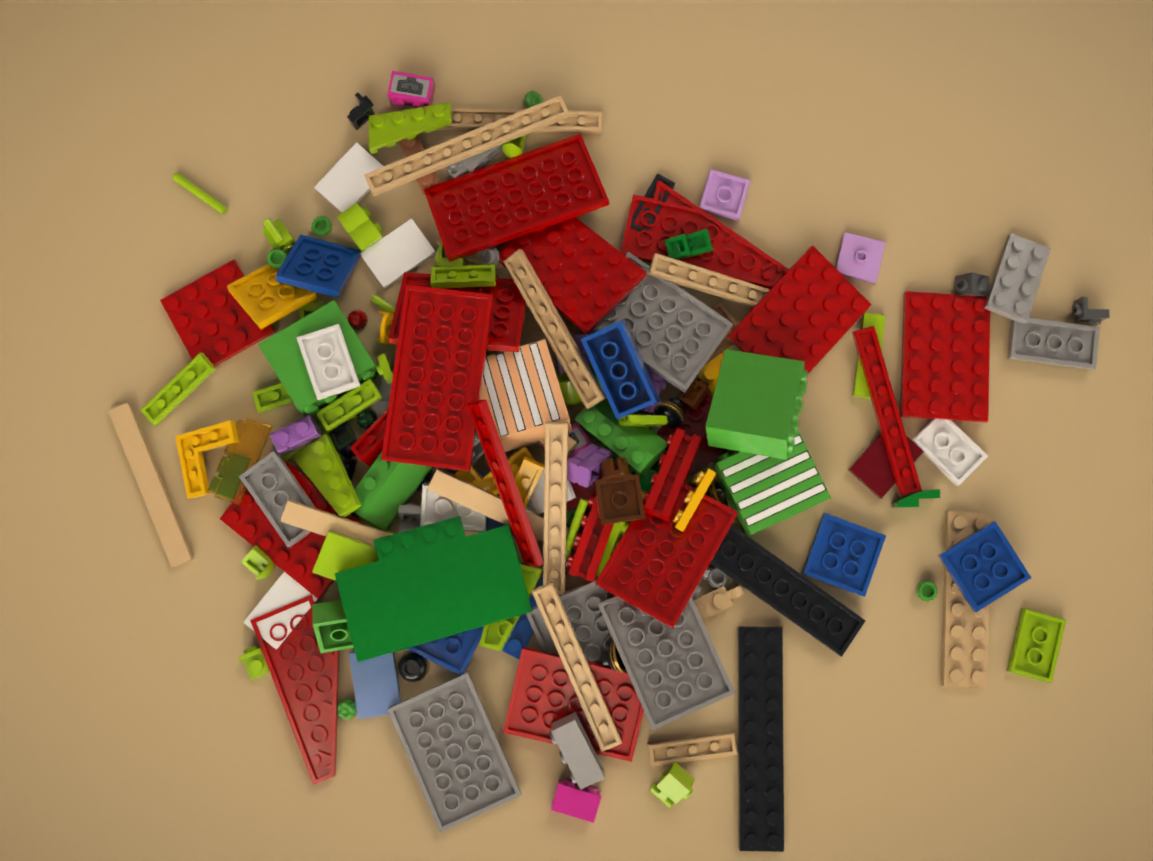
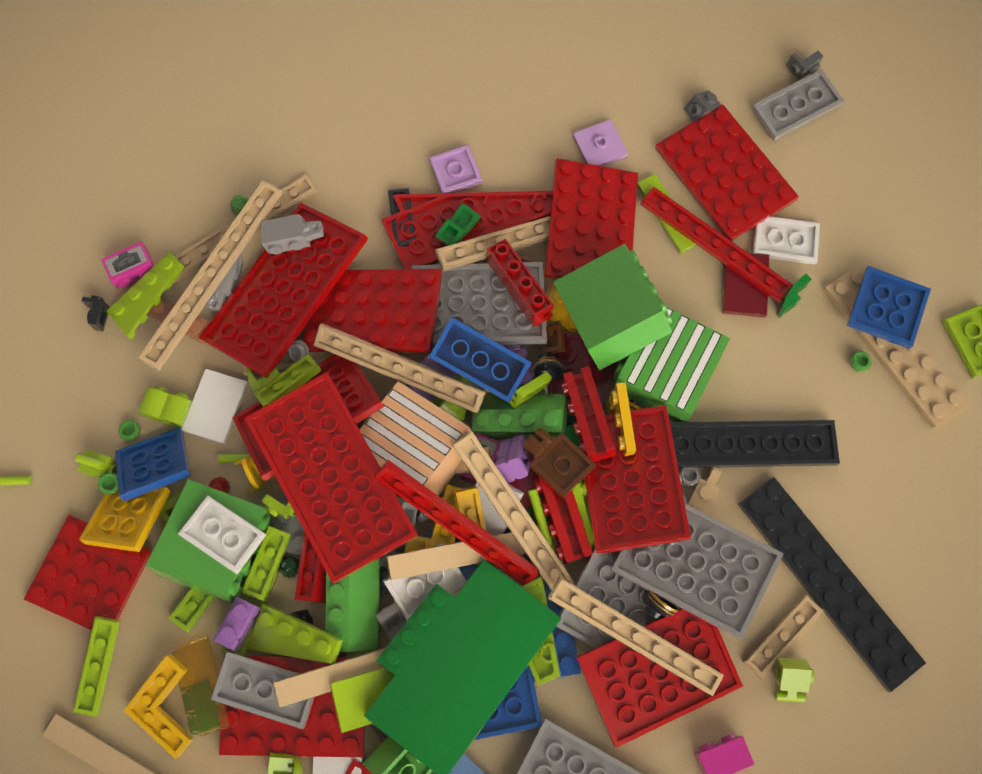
camera: 40 degrees left, 10 degrees down
(344, 438) = (283, 597): black bracket -> none
(346, 180) = (125, 375): white tile -> none
(413, 667) = (492, 753): black piece -> none
(514, 147) = (251, 251): lime plate -> none
(550, 155) = (289, 233): none -> light grey hinge
(577, 751) = (691, 712): light grey brick -> none
(699, 329) = (519, 282): none -> red brick
(844, 554) = (774, 381): blue plate -> none
(1017, 278) = (732, 76): light grey plate -> none

